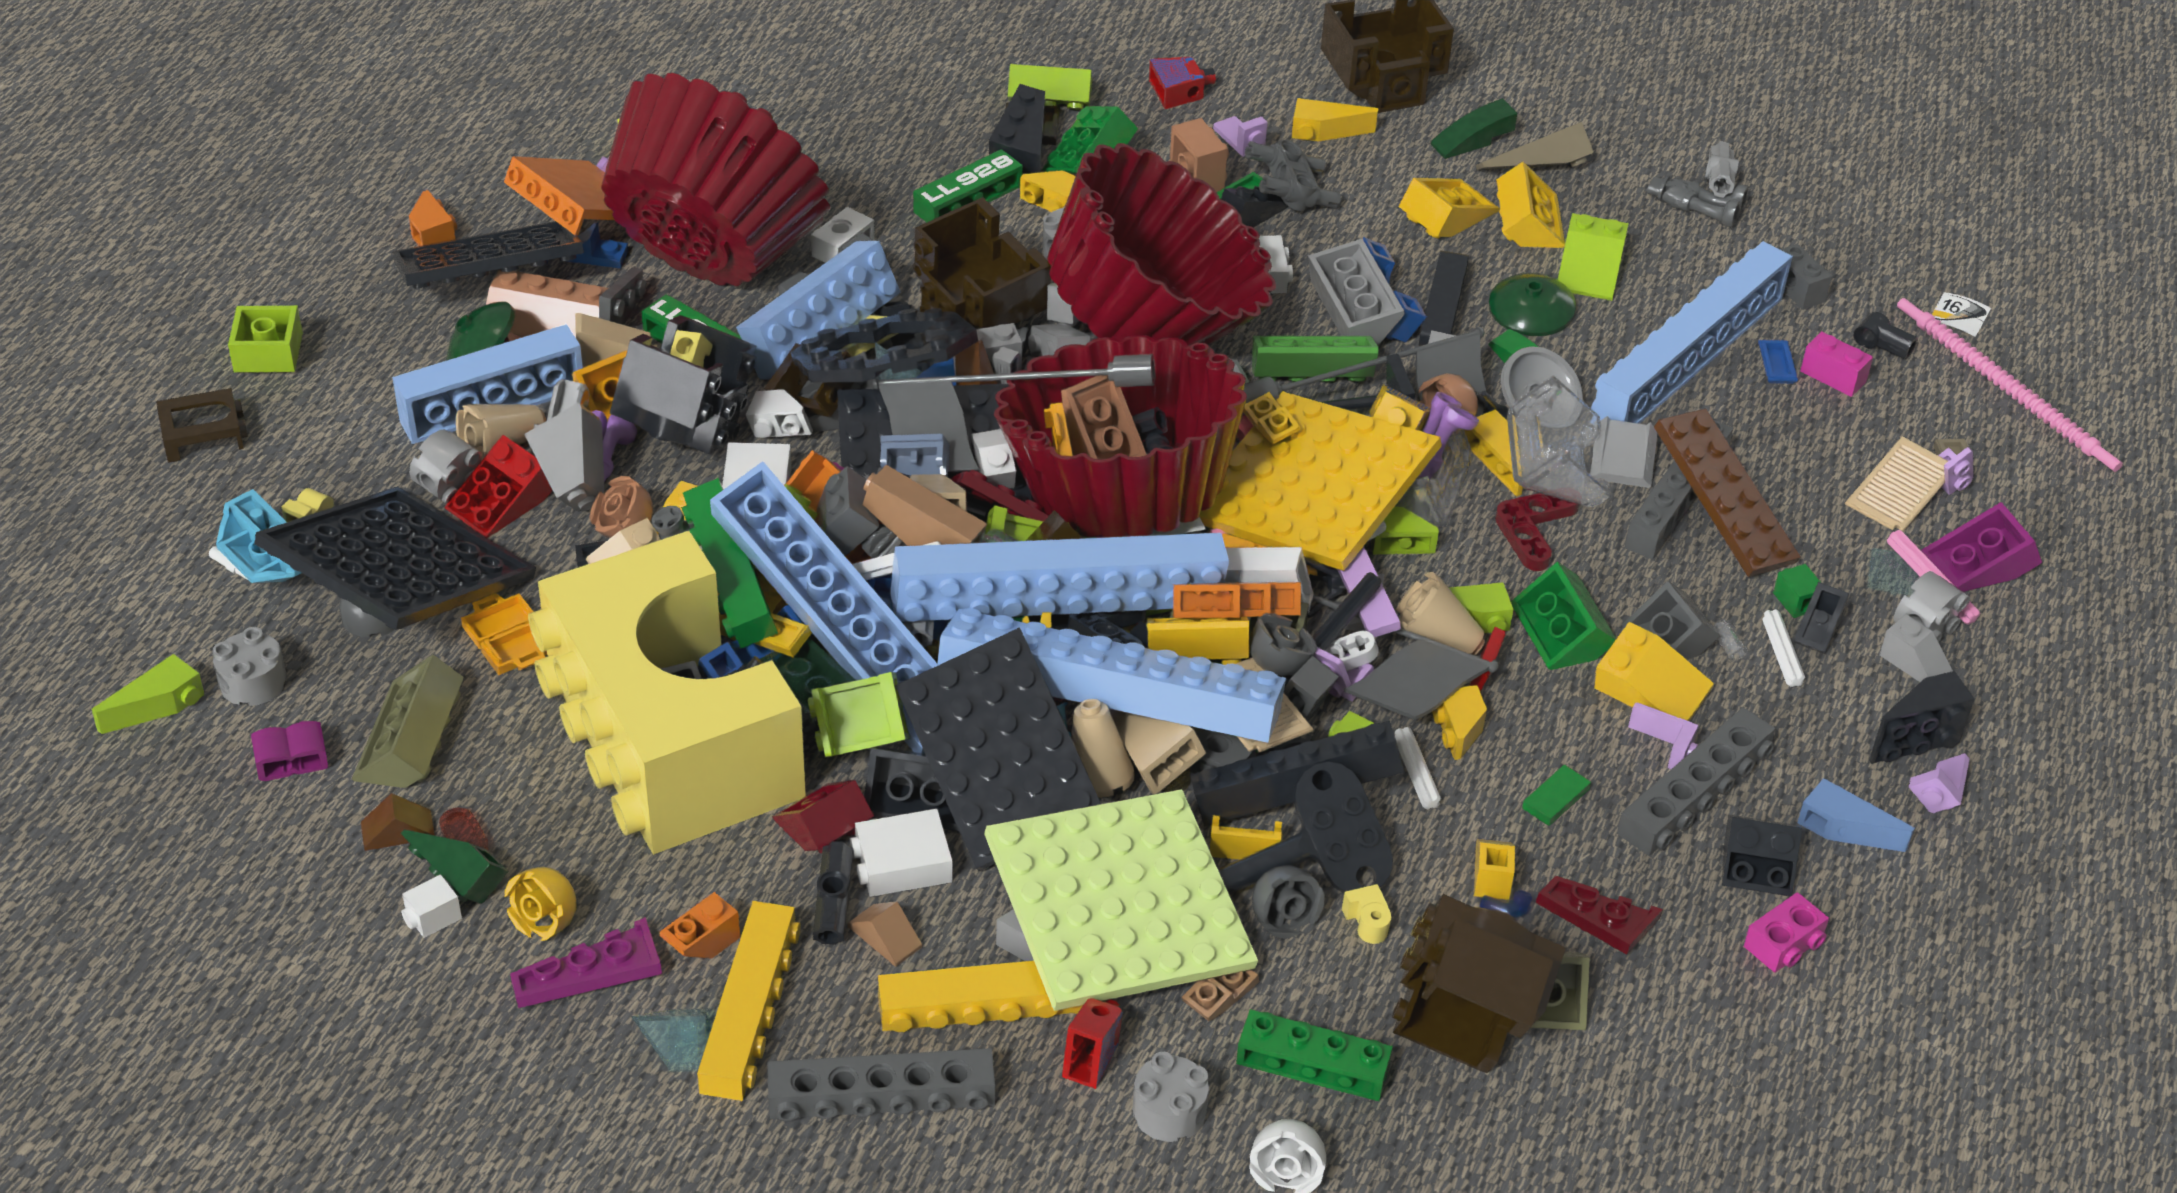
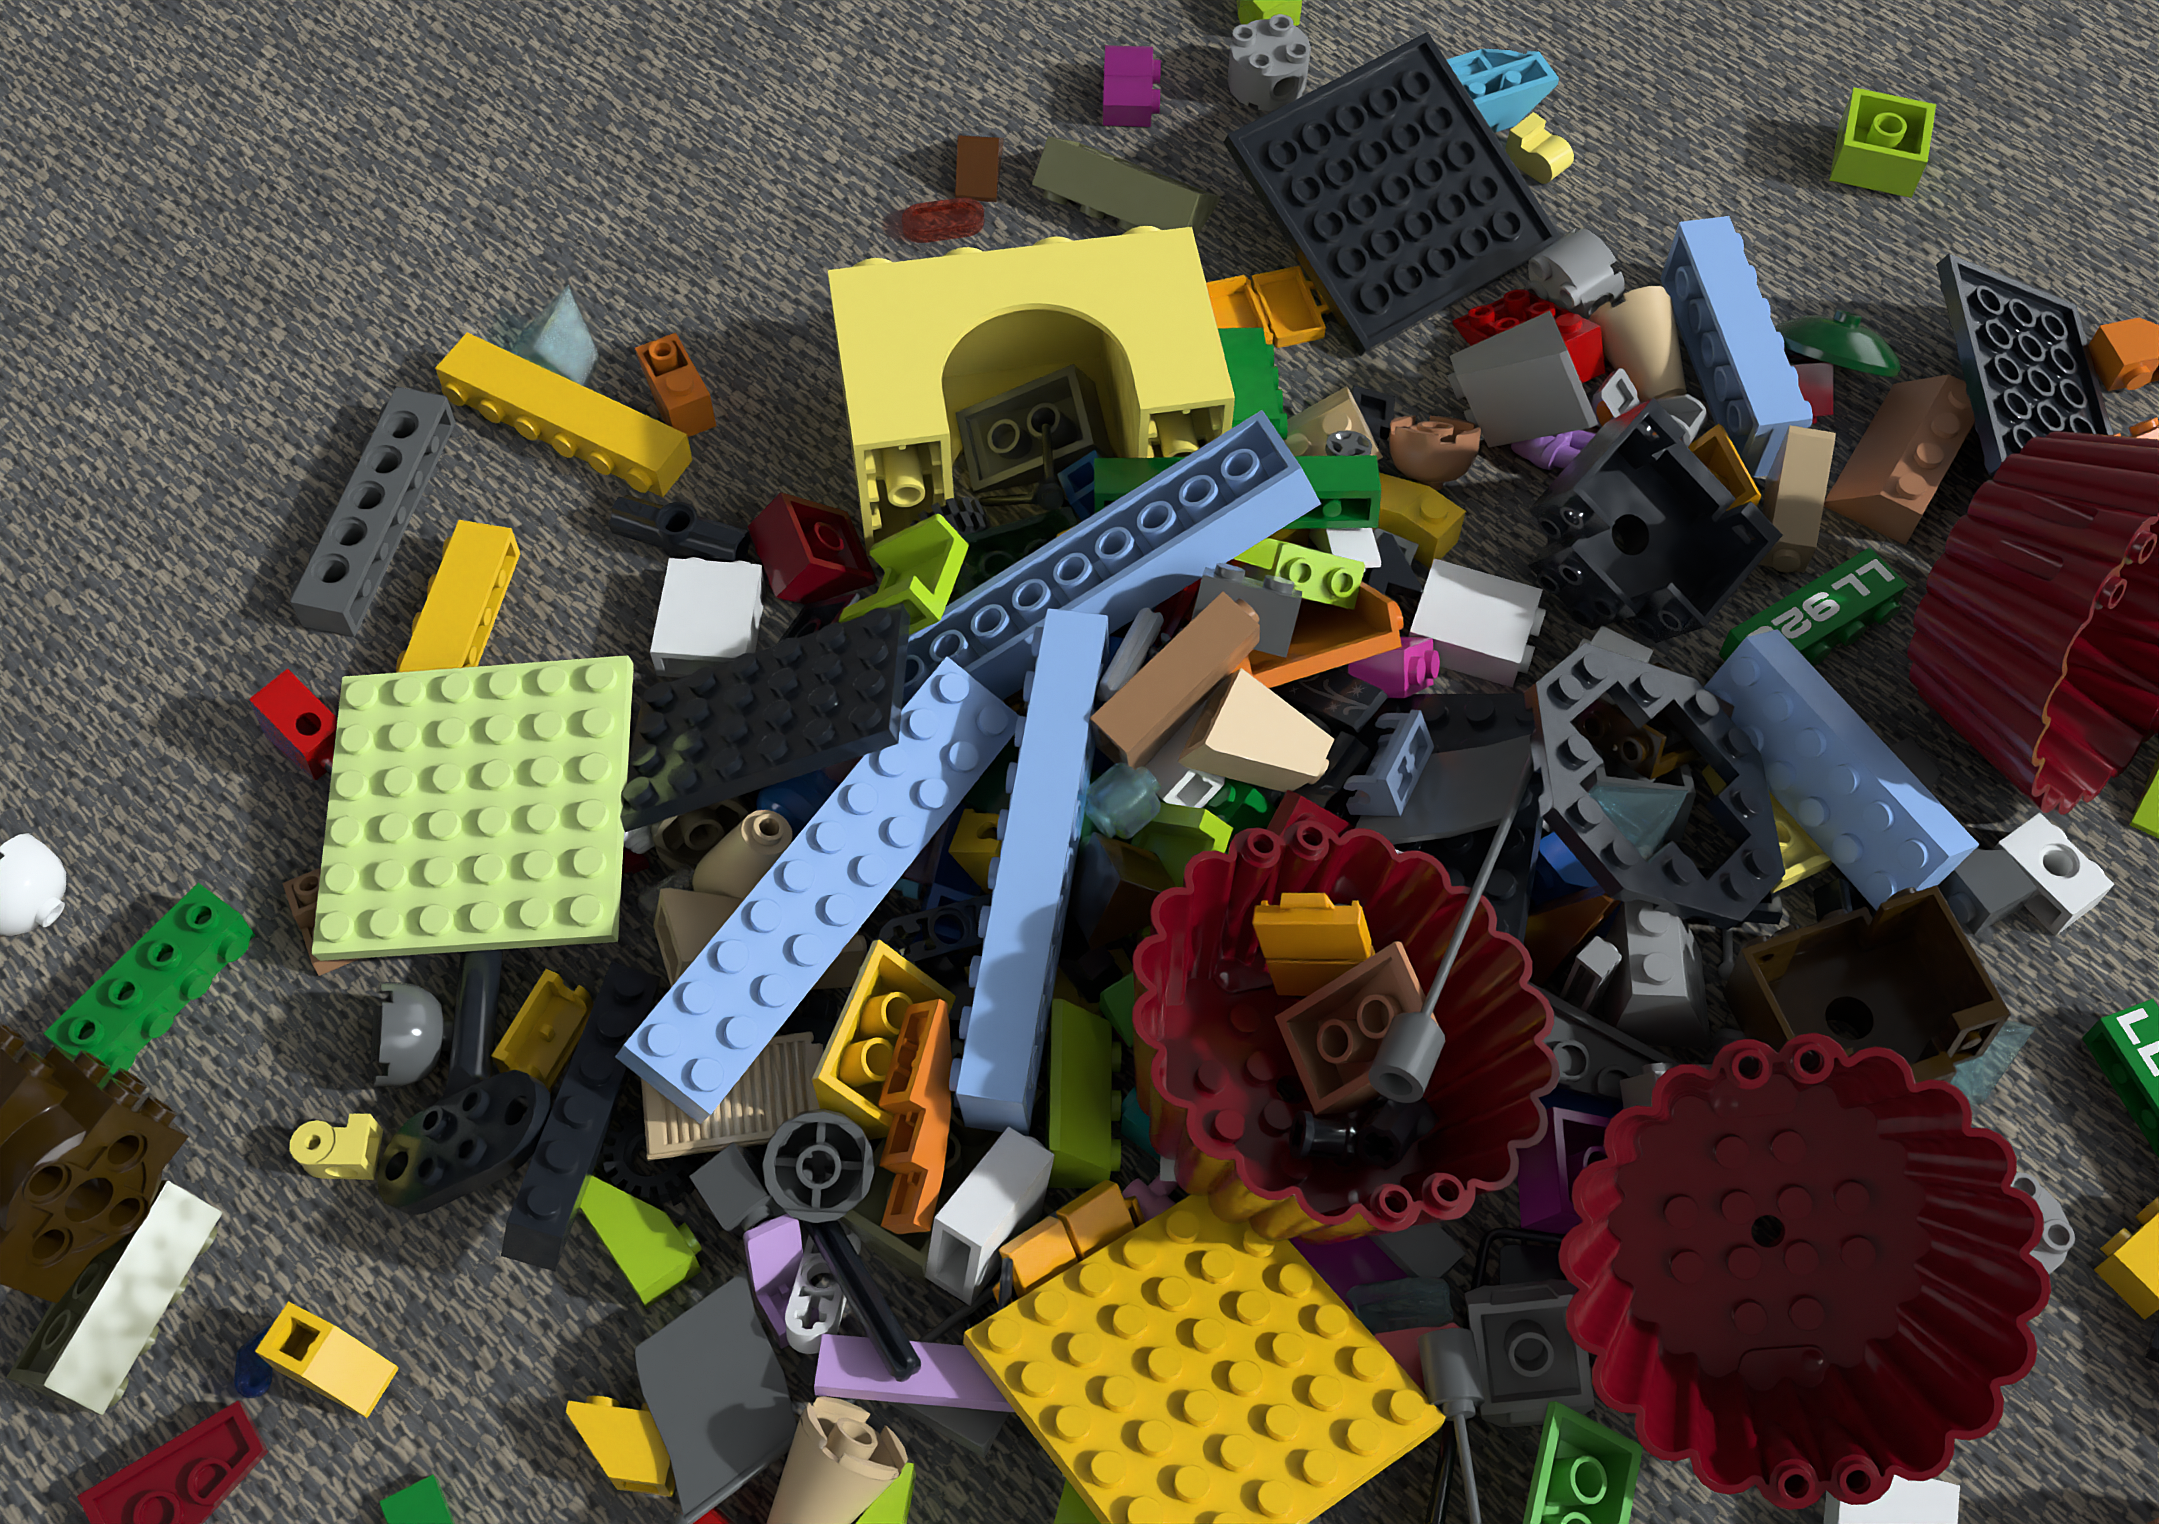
camera: 110 degrees right, 15 degrees up
(199, 433) = (1729, 44): dark brown panel -> none
(431, 906) = (838, 168): white brick -> none
(466, 867) = (891, 189): dark green slope -> none
(539, 894) = (789, 253): yellow cylinder -> none
(607, 963) = (690, 289): magenta wing -> none
(621, 297) = (1889, 523): dark grey wing -> none
(691, 347) = (1705, 540): light yellow leg -> none
(887, 931) = (601, 573): medium nougat slope -> none
(1170, 1097) = (179, 790): light grey brick -> none
(1270, 419) = (1355, 1355): yellow slope -> none
(1417, 768) = (568, 1339): white axle -> none

